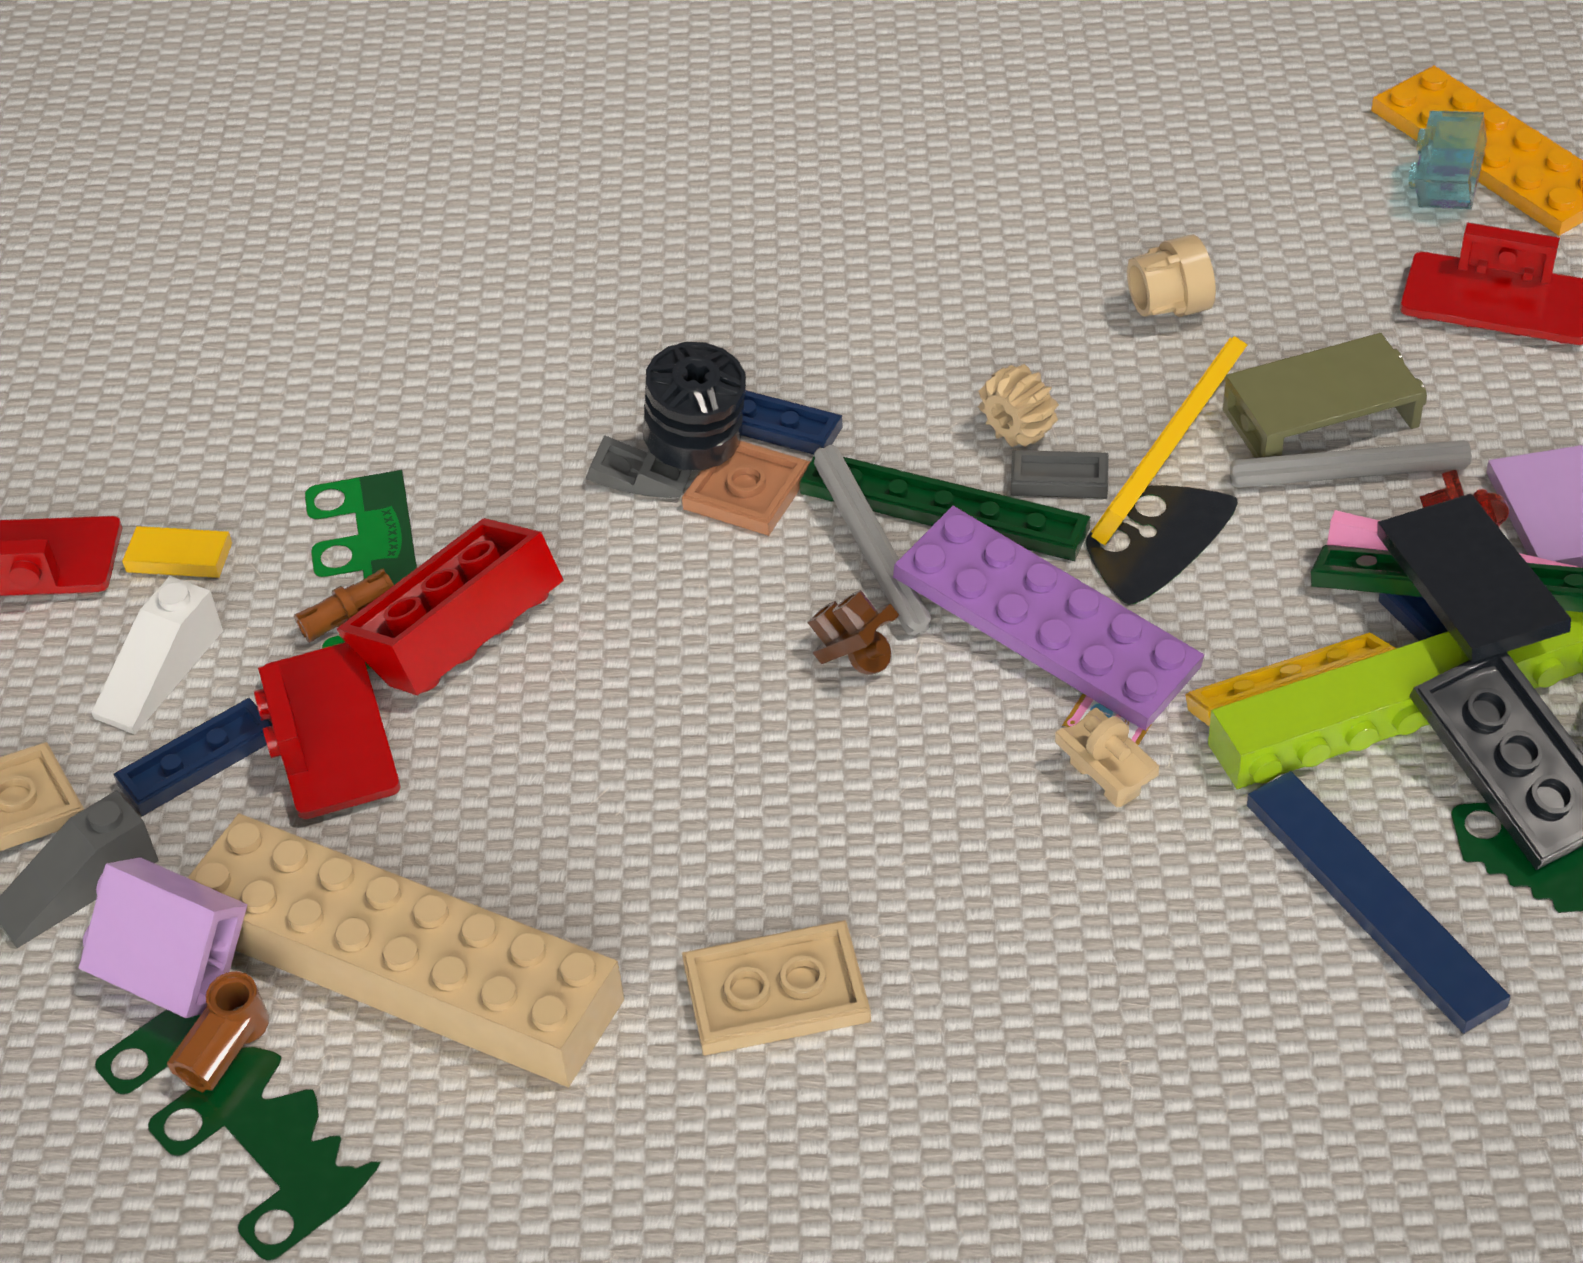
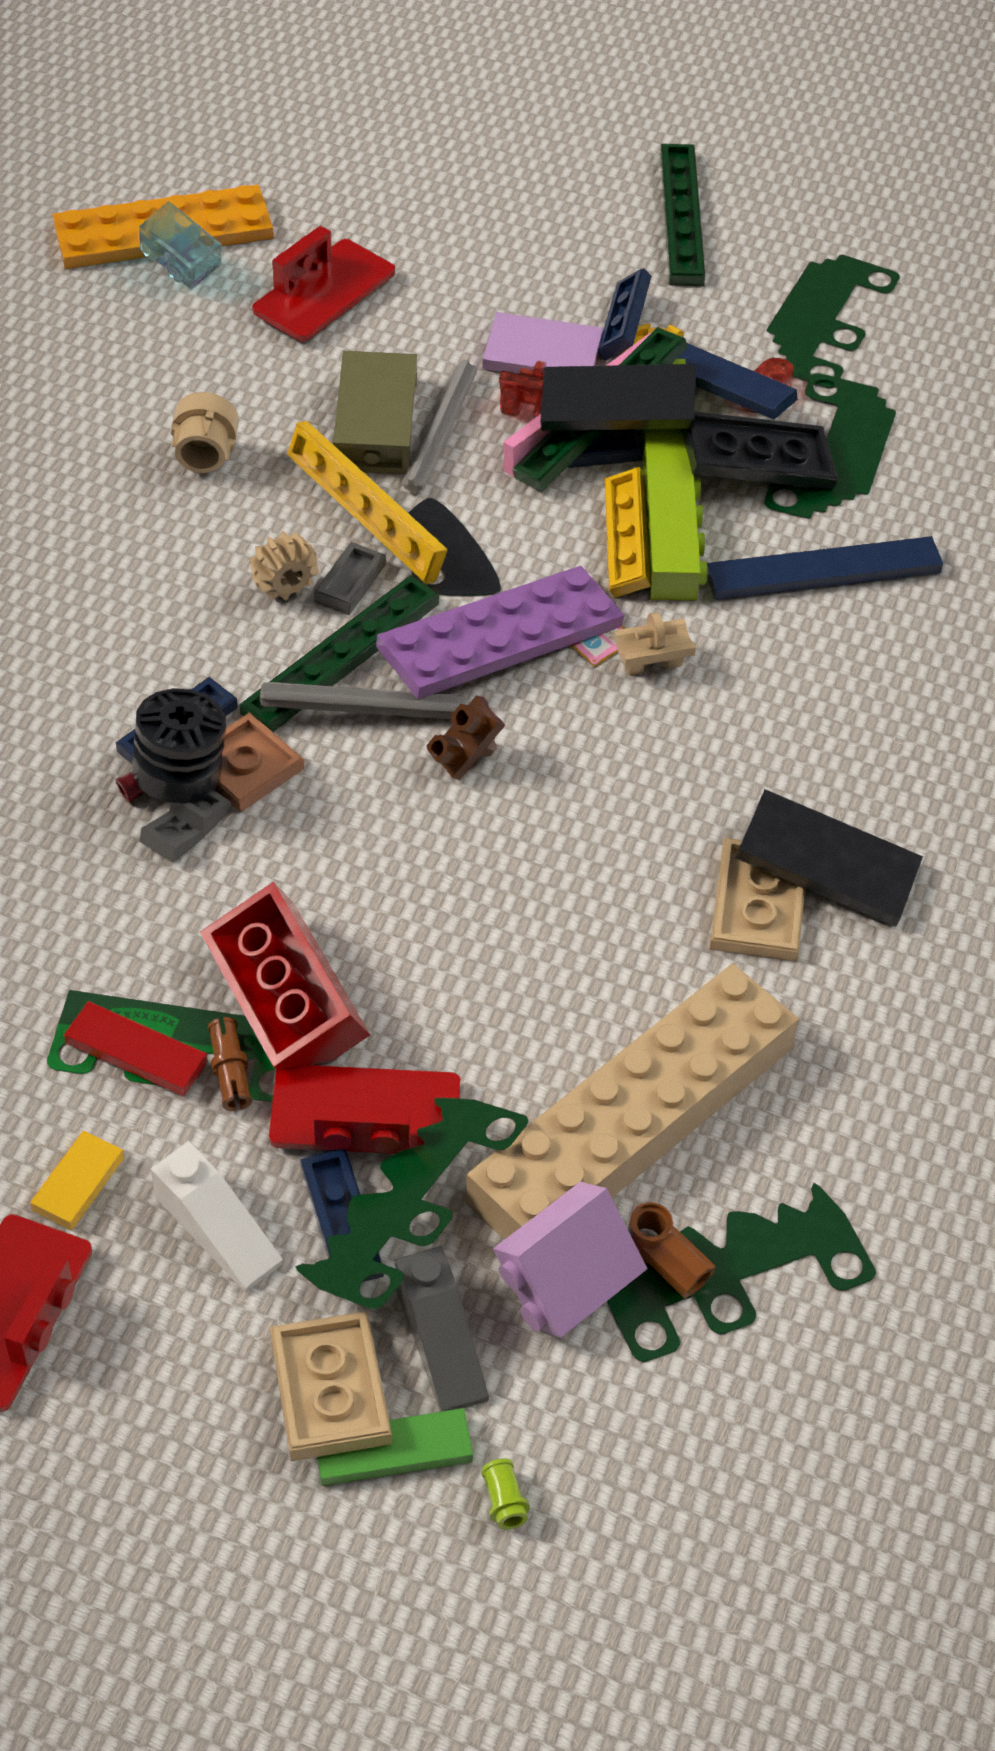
camera: 75 degrees left, 5 degrees up
(197, 771) = (387, 1214): none -> dark green piece
(340, 534) = (136, 1048): none -> red tile
(859, 1033) = (829, 857): none -> black tile

